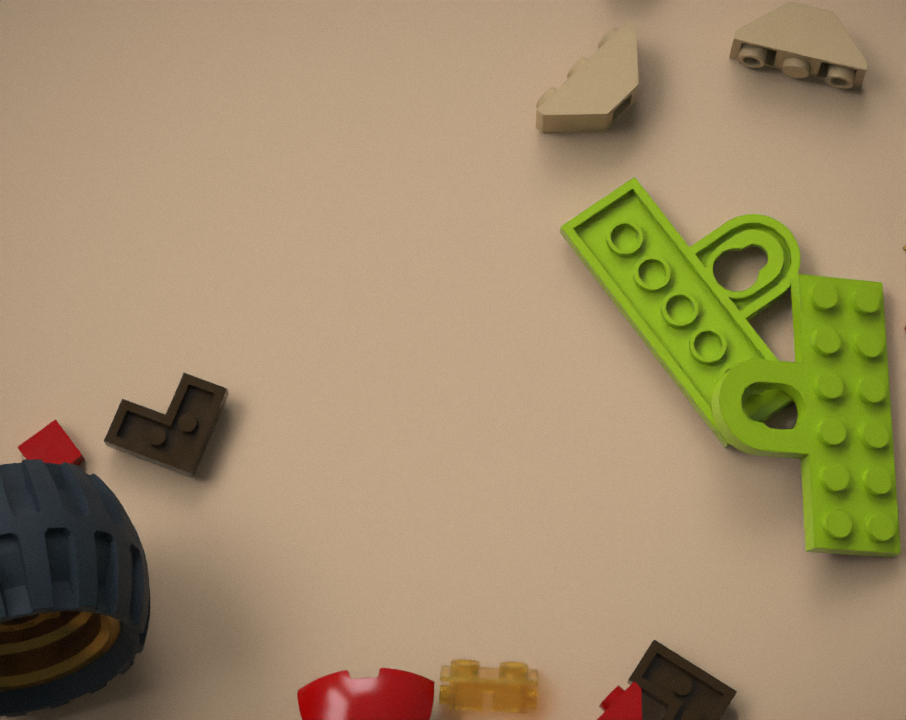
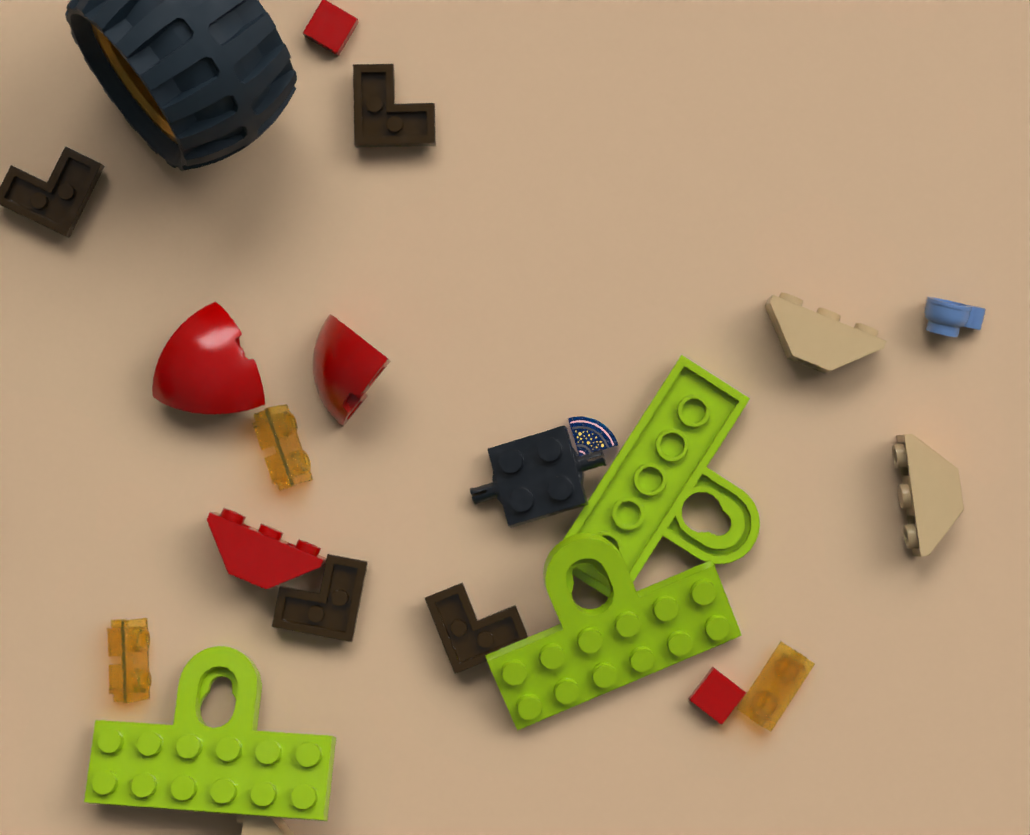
camera: 65 degrees right, 15 degrees up
(428, 577) = (344, 368): none -> red brick
(607, 354) = (590, 435): none -> clear blue tile
(631, 423) = (538, 476): none -> black plate
(775, 568) = (467, 637): none -> dark brown plate

